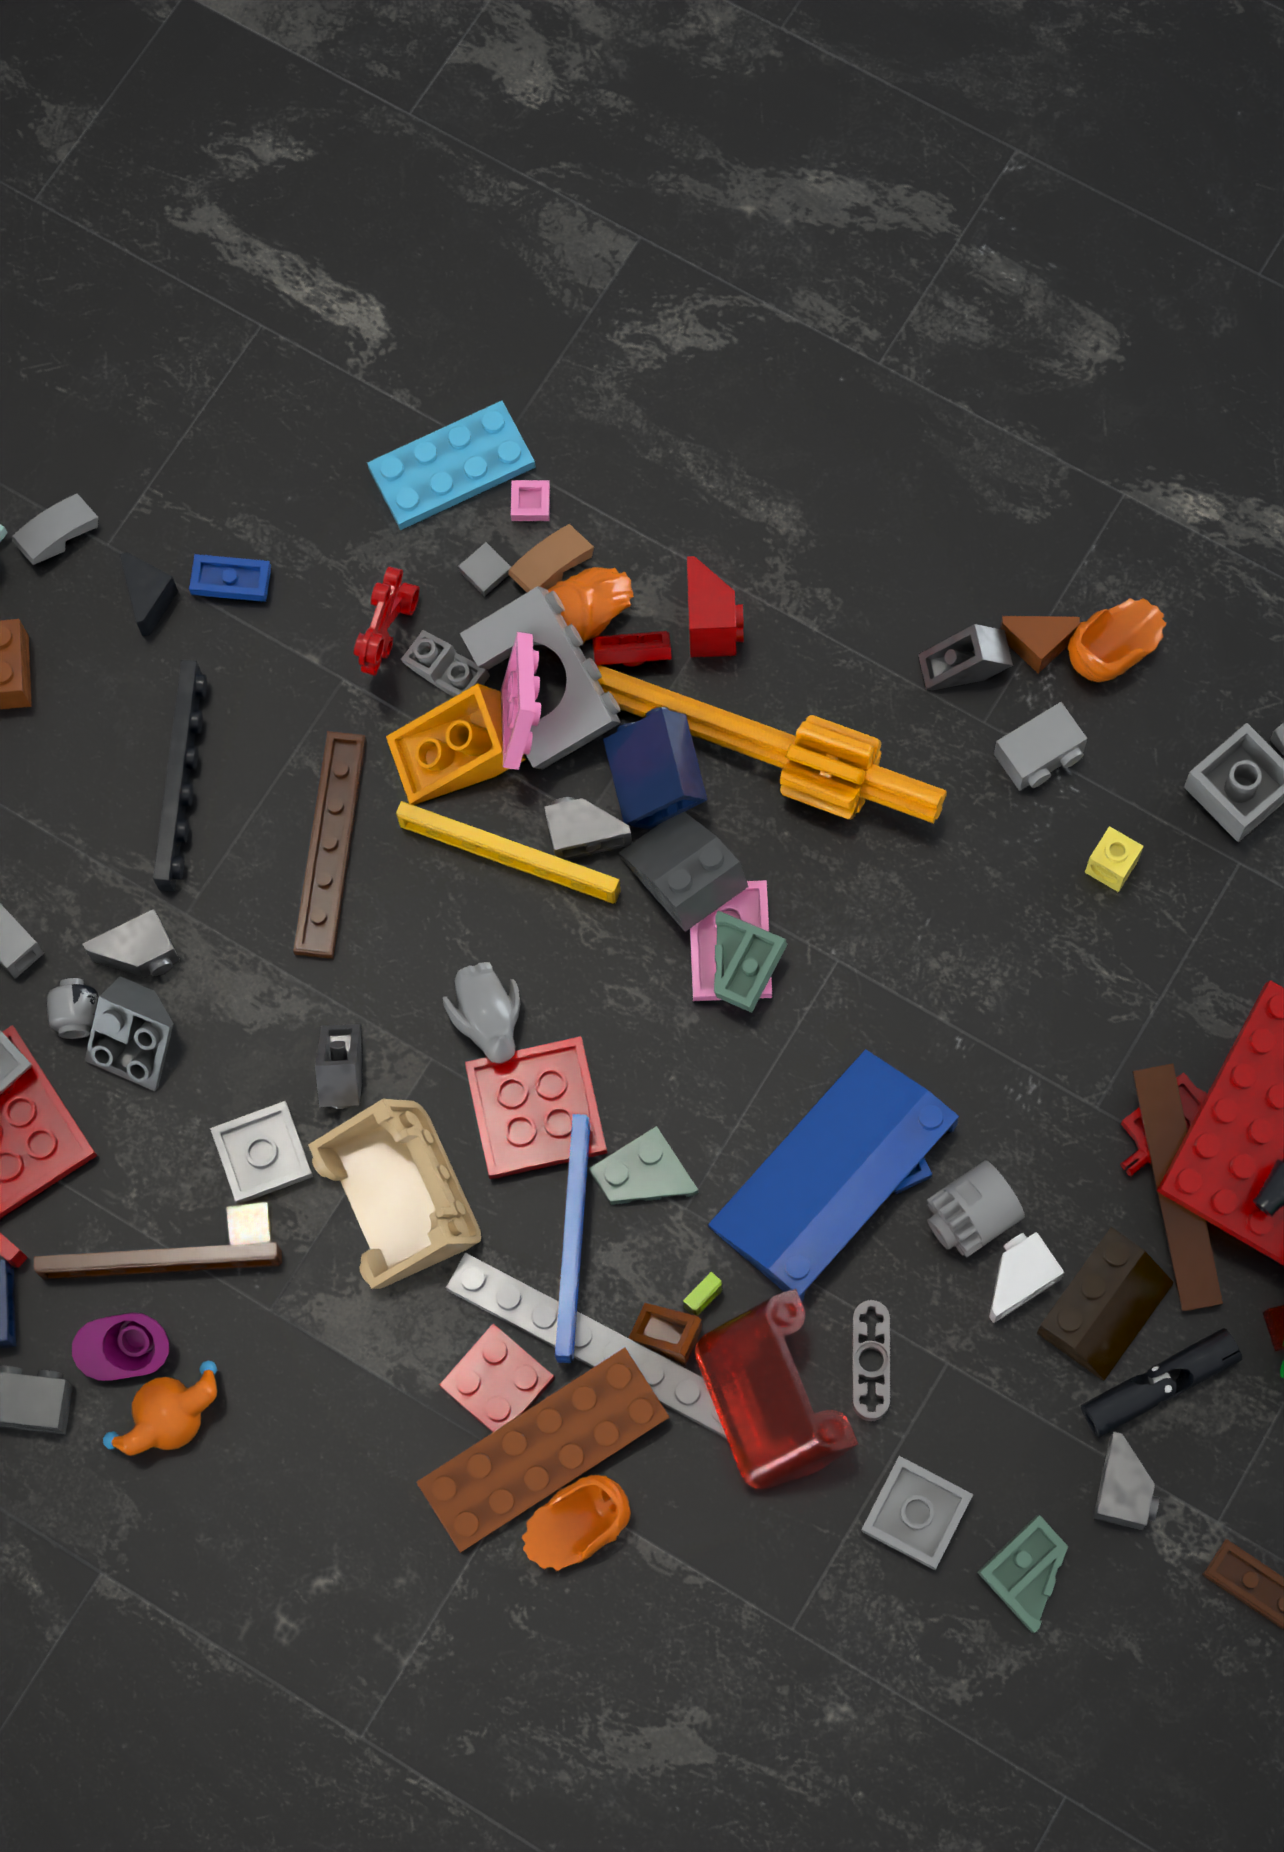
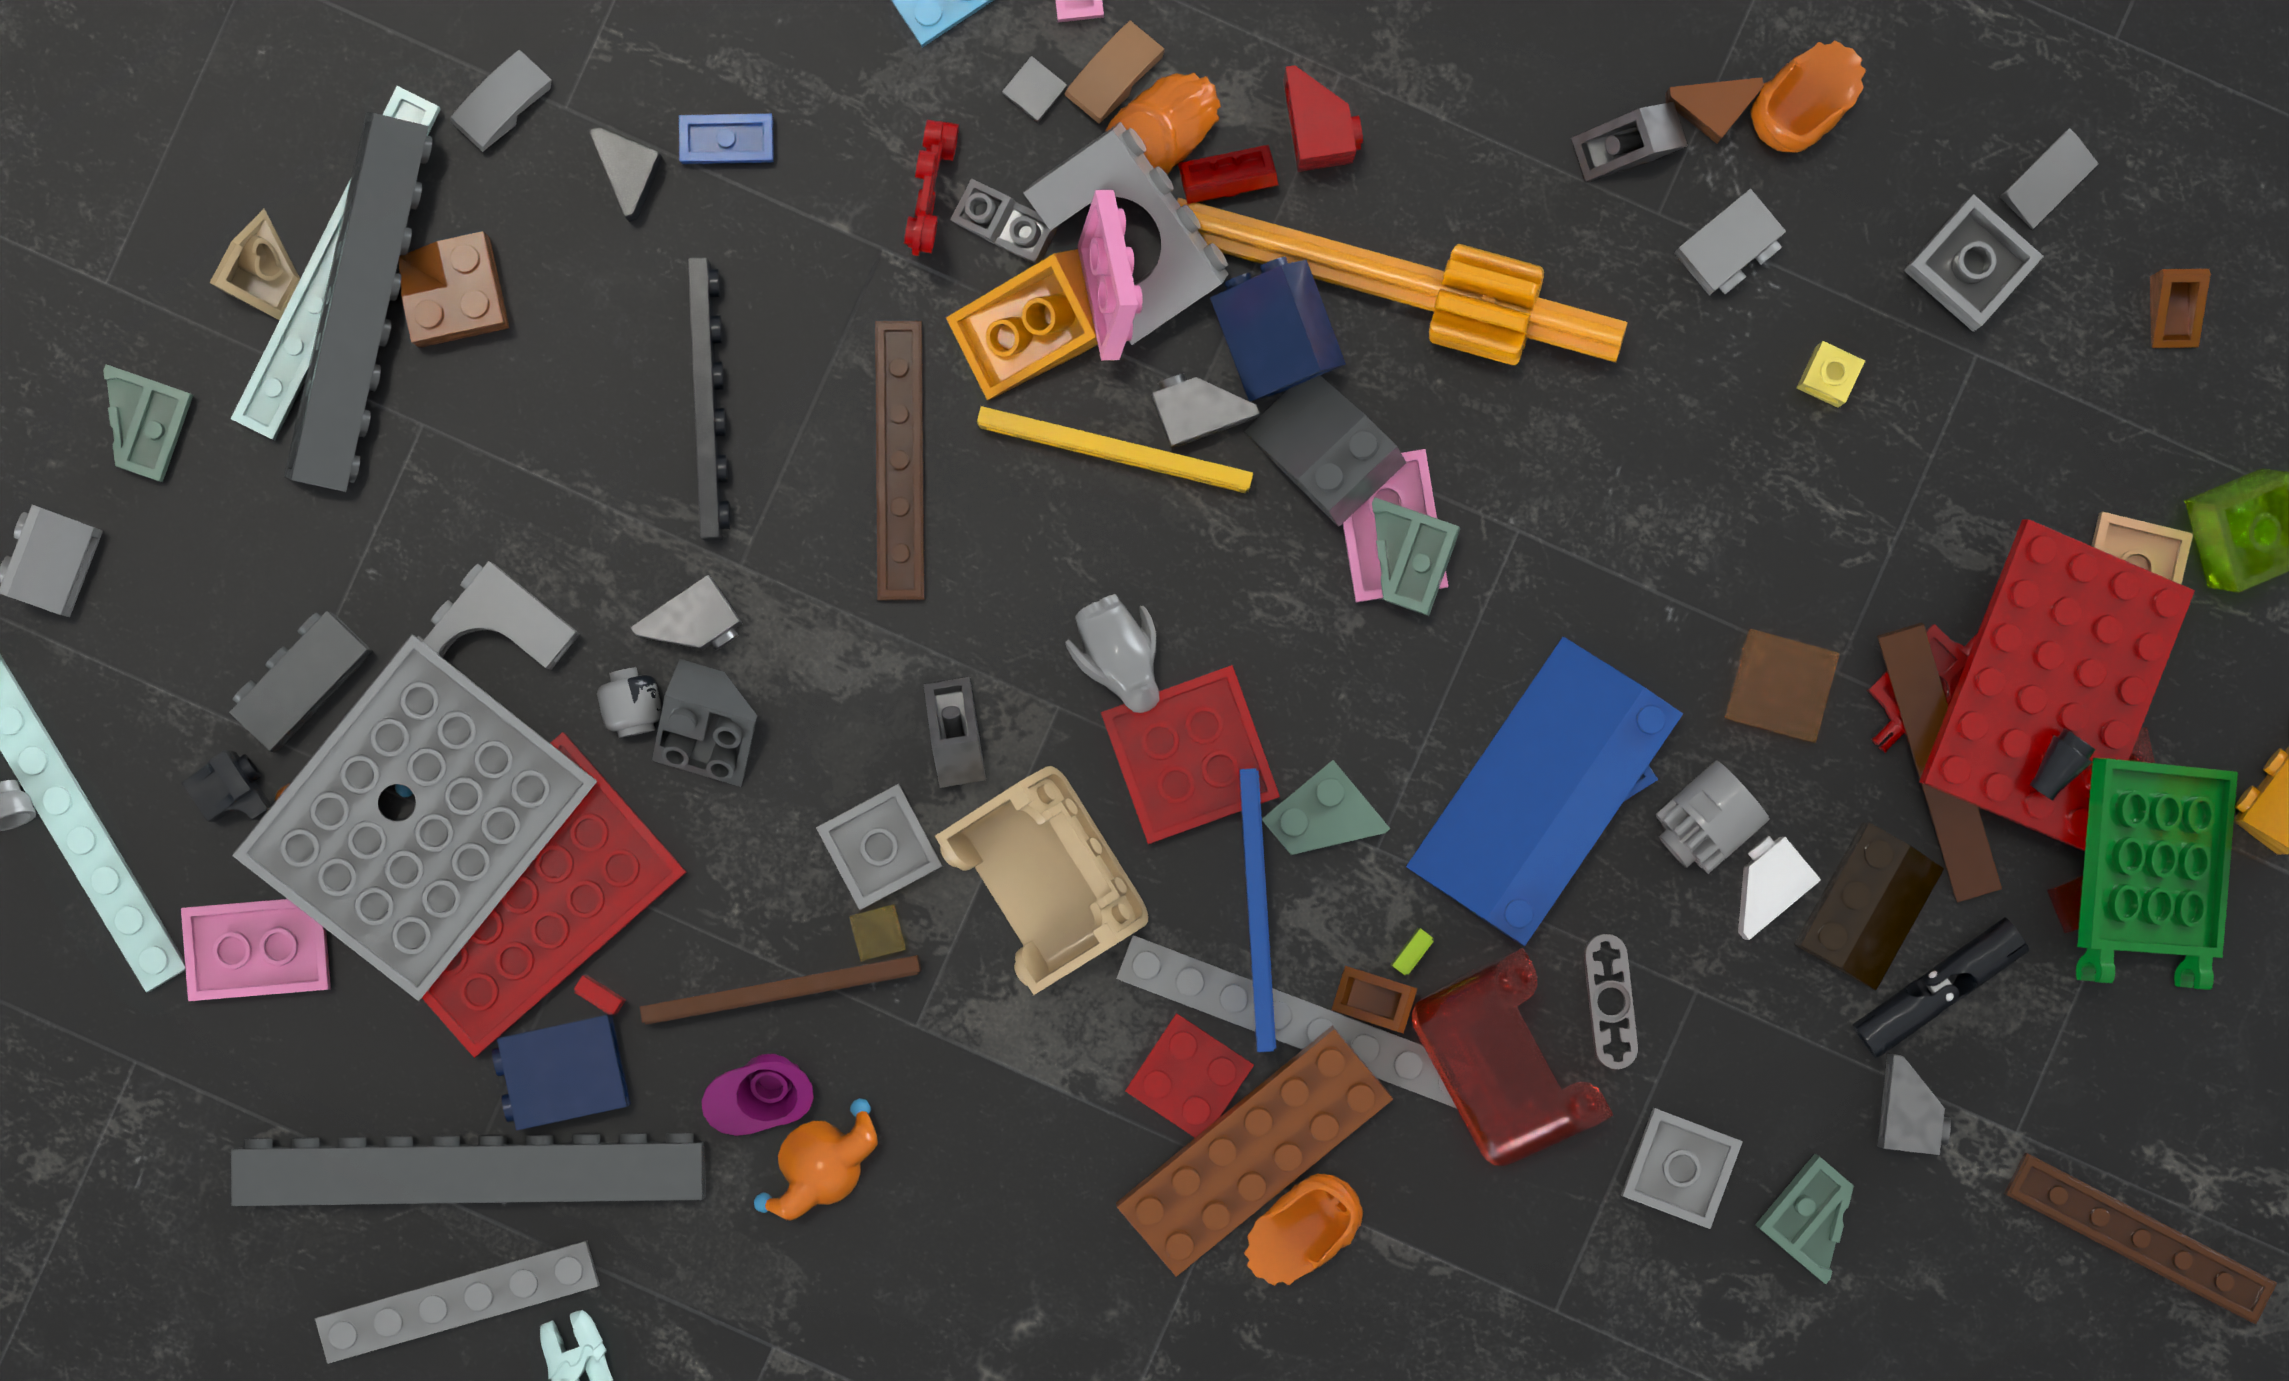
camera: 15 degrees left, 15 degrees up
(1047, 1111) = (1781, 685): none -> clear orange tile

